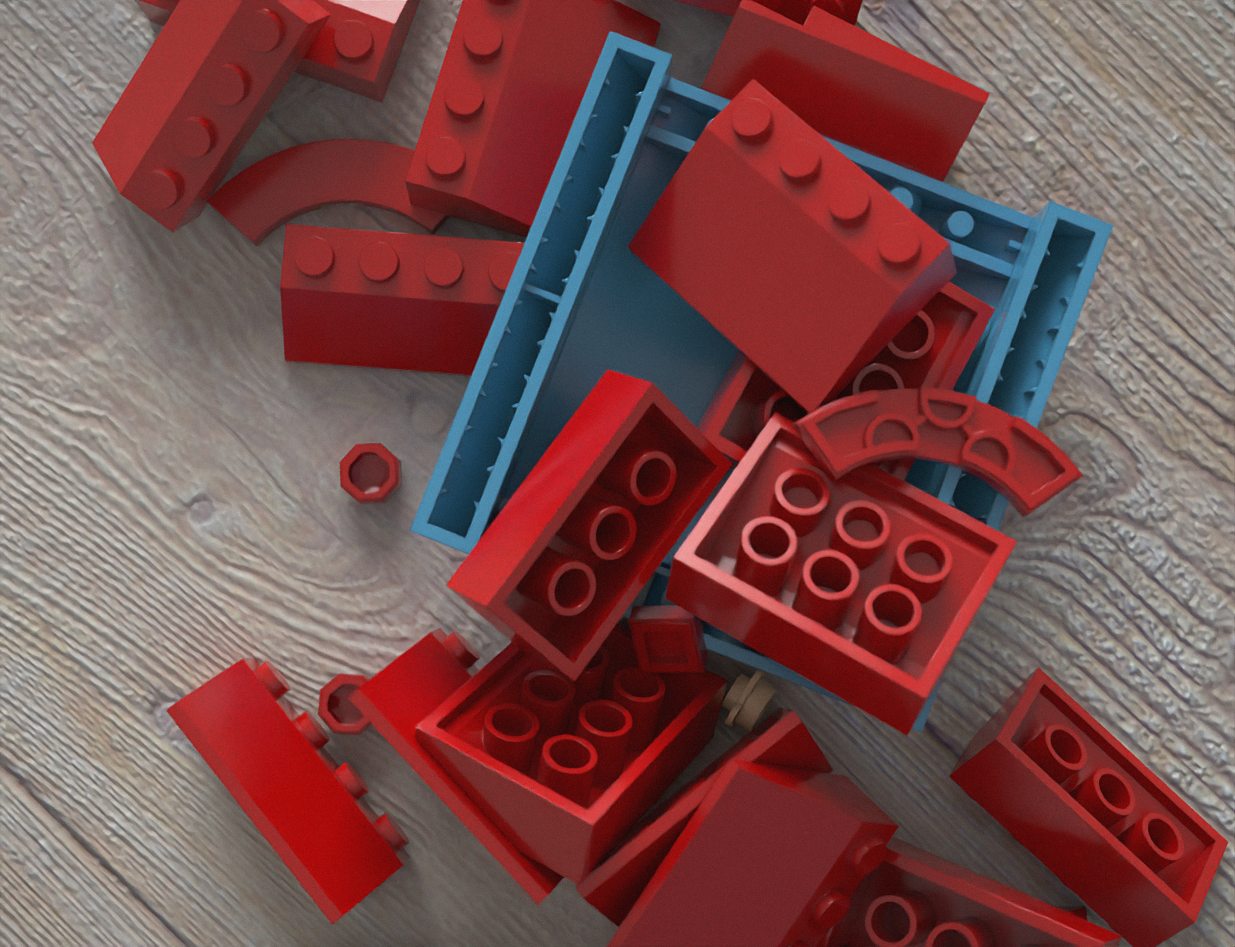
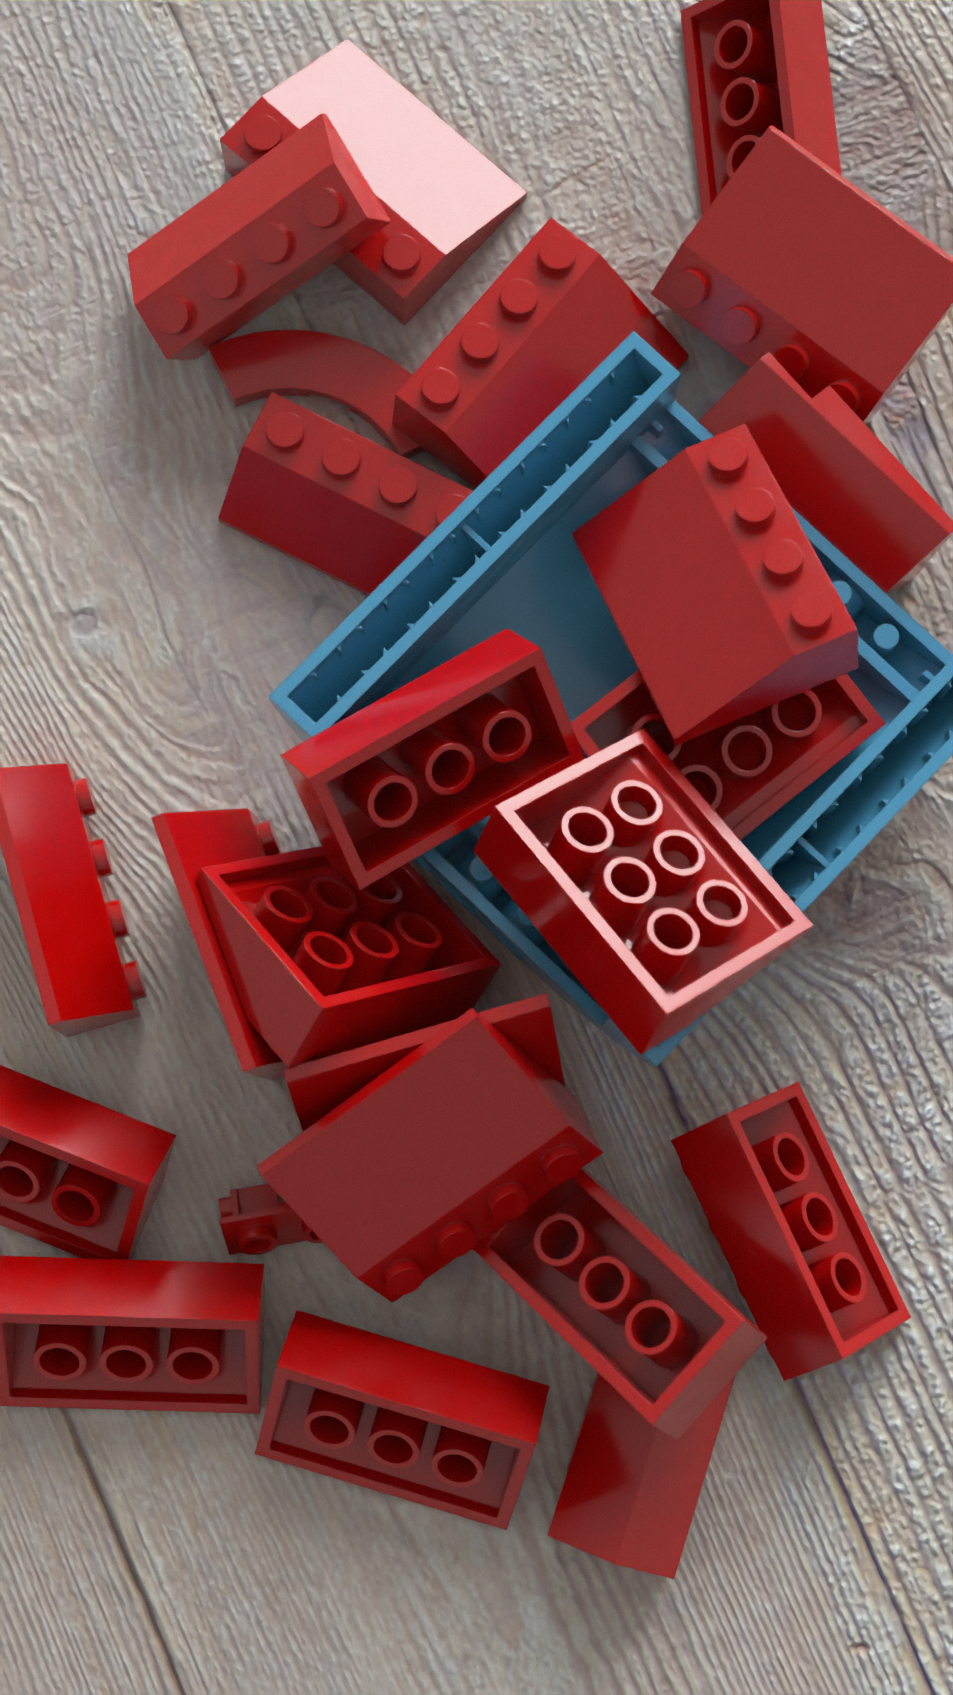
camera: 20 degrees right, 5 degrees down
(338, 710) = (140, 851): red tile -> none
(370, 473) = (253, 650): red tile -> none
(667, 639) = (461, 899): red tile -> none
(748, 700) = (513, 988): light nougat plate -> none
(942, 429) = (785, 798): red tile -> none

